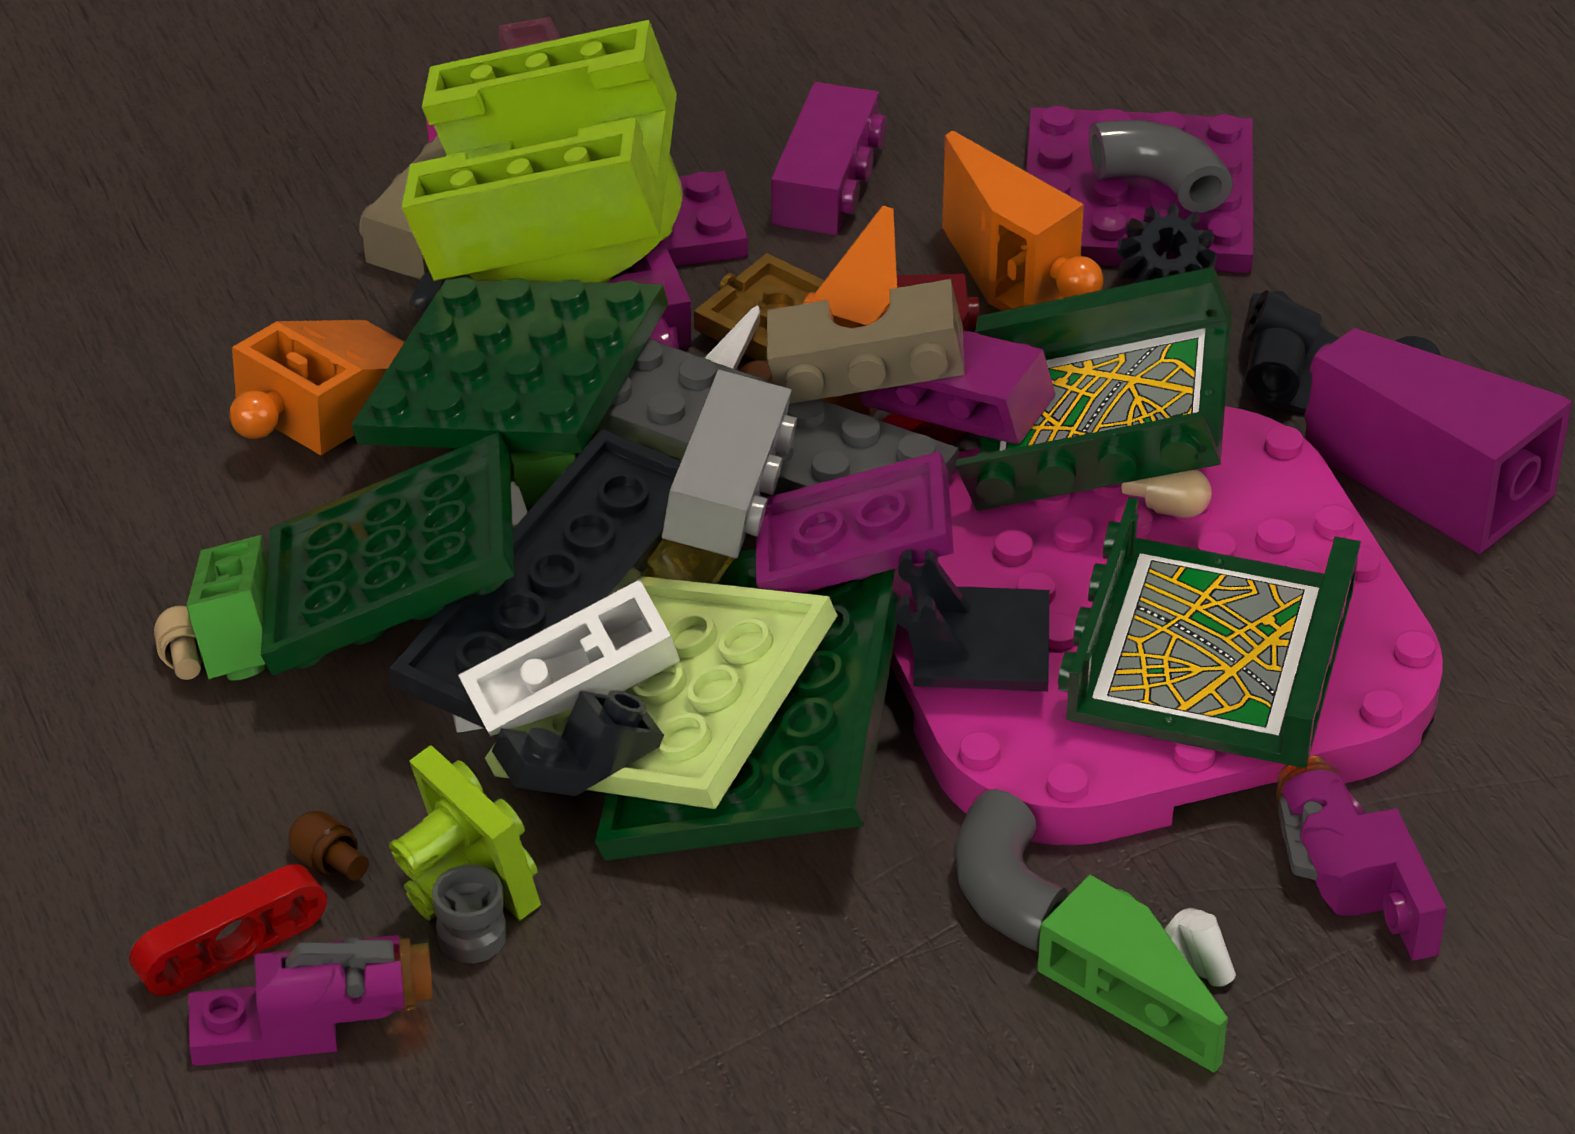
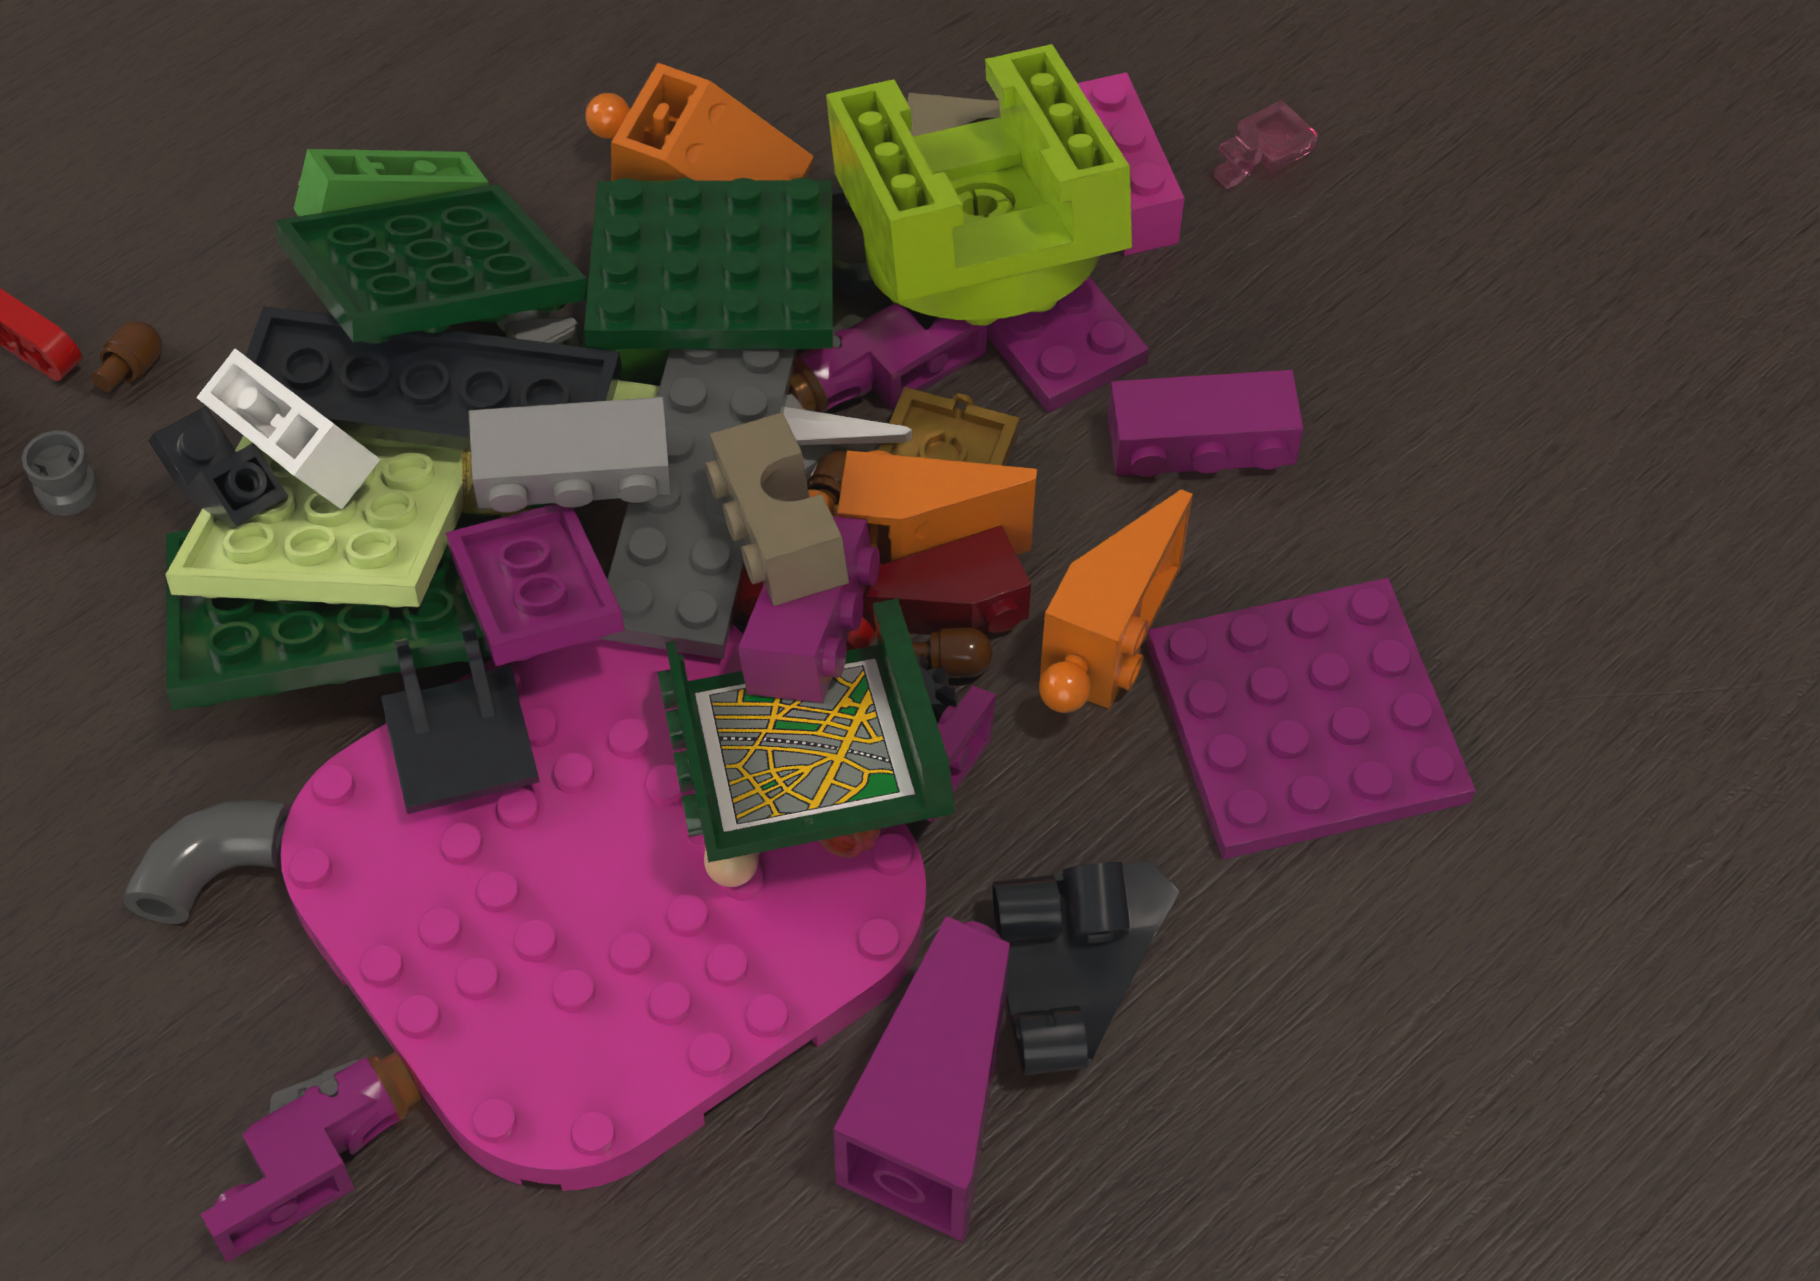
camera: 70 degrees right, 15 degrees up
(462, 830) = (108, 434): lime plate -> none
(1127, 964) = (110, 988): bright green slope -> none
(1162, 155) = (1309, 708): dark grey cylinder -> none
(1164, 233) = (1183, 771): black gear -> none
(1202, 945) = (156, 1036): white plate -> none
(1207, 645) = (517, 932): panel -> none

